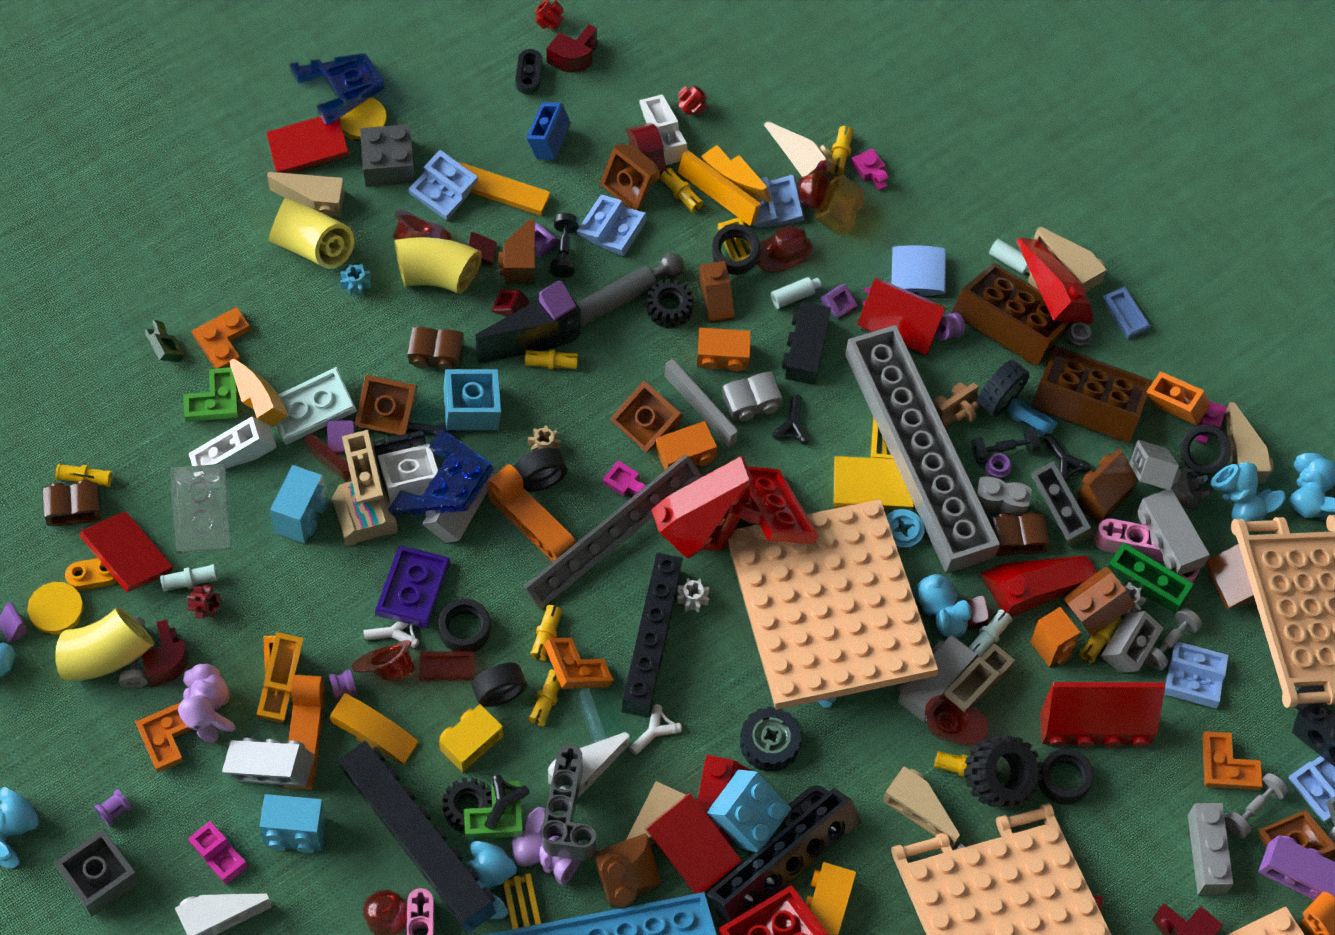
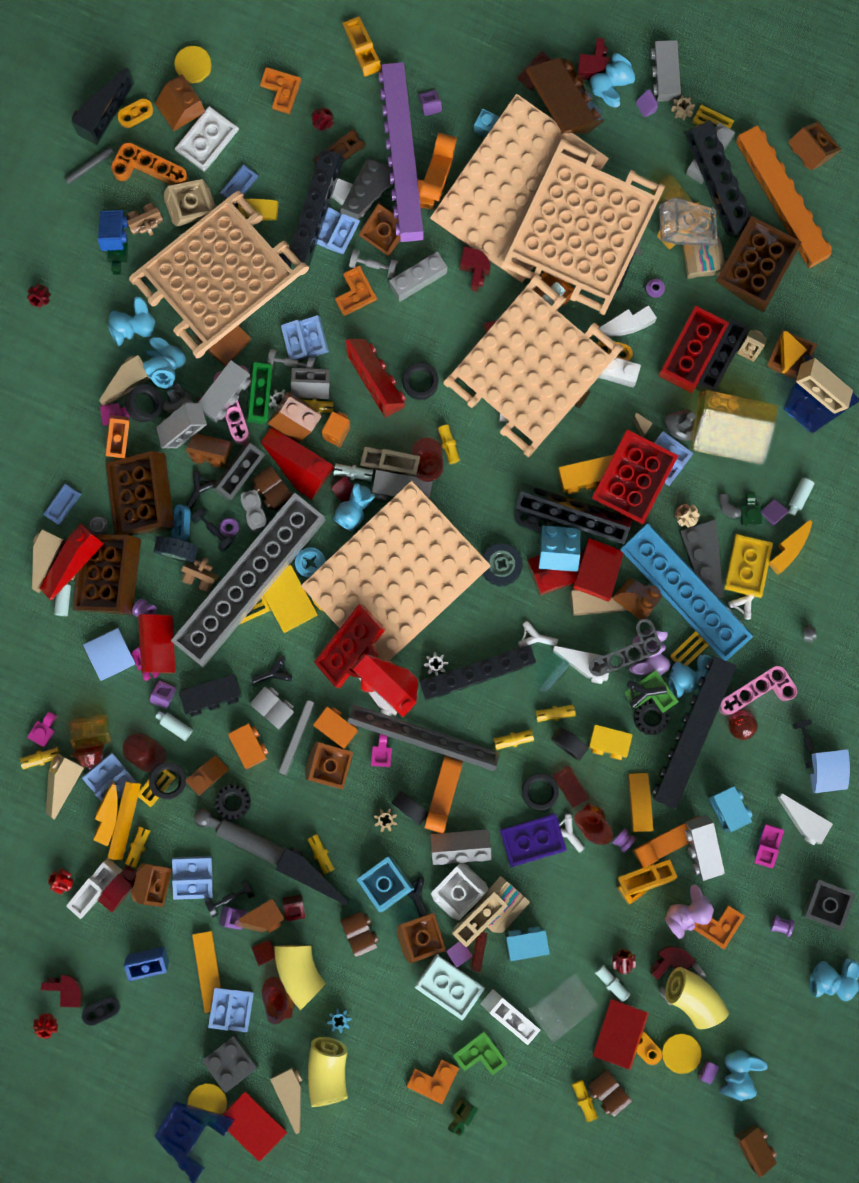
camera: 120 degrees left, 20 degrees up
(258, 394) = (463, 1026): slope -> none
(399, 442) = (440, 911): black axle -> none
(454, 484) = (458, 850): clear blue wing -> none
(556, 300) = (292, 865): medium lavender slope -> none
(573, 670) = (532, 706): orange plate -> none
(917, 801) = (488, 460): tan slope -> none
(1022, 771) = (443, 427): black tyre -> none

